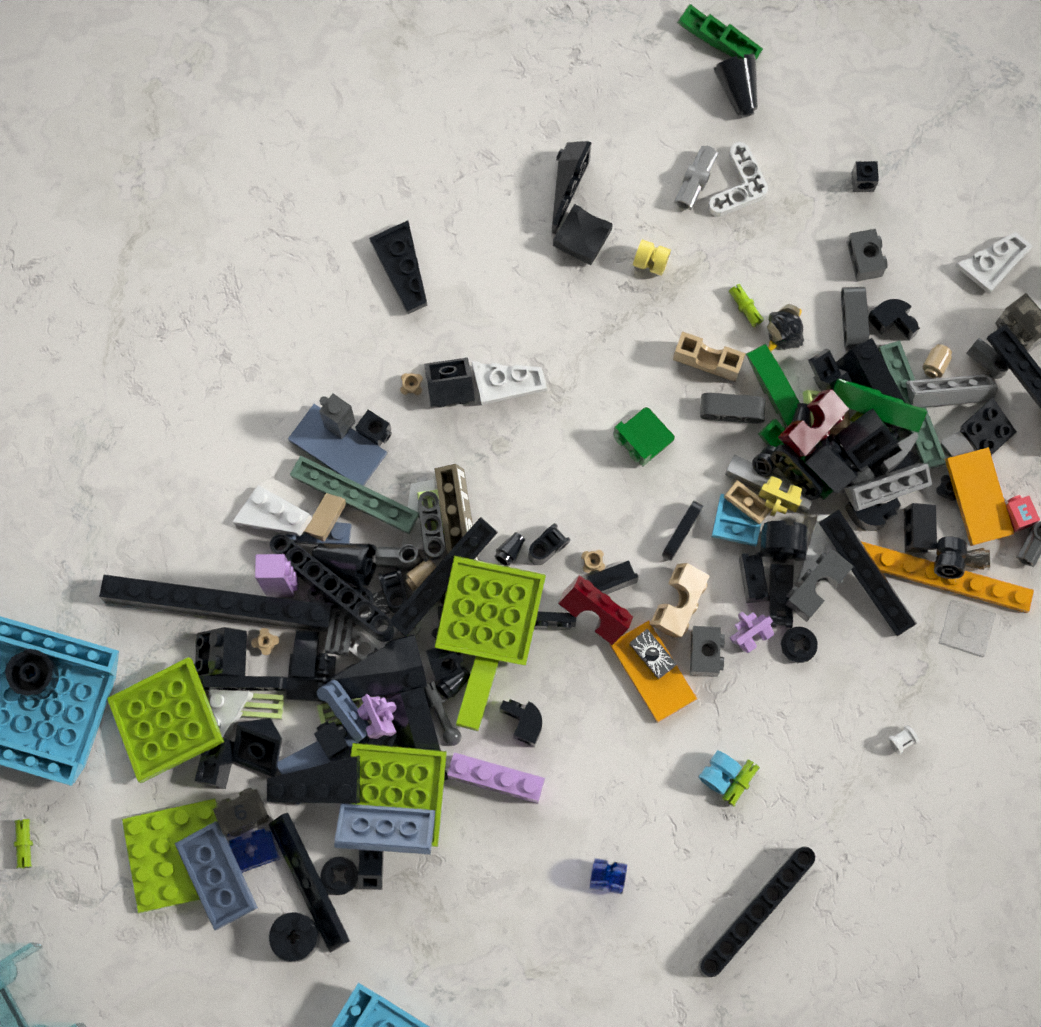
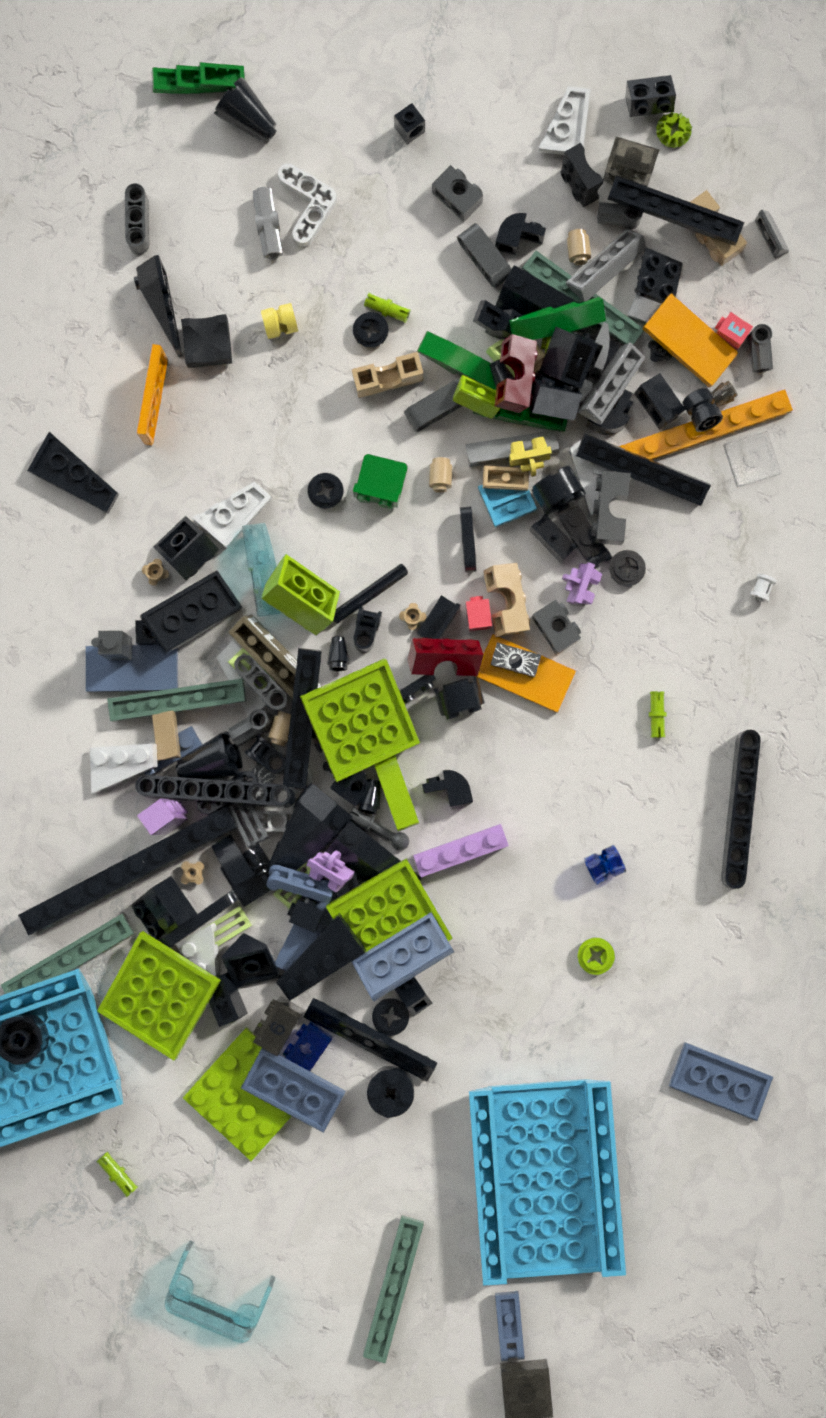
camera: 30 degrees left, 10 degrees up
(125, 639) = (73, 954): none -> sand green plate
(416, 433) = (191, 612): none -> black tile
(498, 439) = (260, 563): none -> clear light blue slope
(509, 246) = (152, 395): none -> light orange tile
(514, 480) = (301, 595): none -> lime slope
(538, 957) = (607, 956): none -> lime gear
(570, 518) = (370, 592): none -> black axle
(584, 650) = (459, 697): none -> black brick
(599, 99) = (136, 208): none -> dark grey beam
(602, 408) = (328, 480): none -> black gear
(648, 596) = (478, 614): none -> coral brick
(696, 464) = (440, 474): none -> tan brick
(720, 304) = (365, 321): none -> black gear
(720, 772) = (636, 718): medium azure wheel -> none
(762, 462) = (497, 431): black wheel -> none
(768, 421) = (476, 397): none -> lime slope
(782, 464) = (514, 421): black beam -> none
(785, 328) = (434, 305): black hair -> none
(976, 306) = (580, 176): none -> black brick

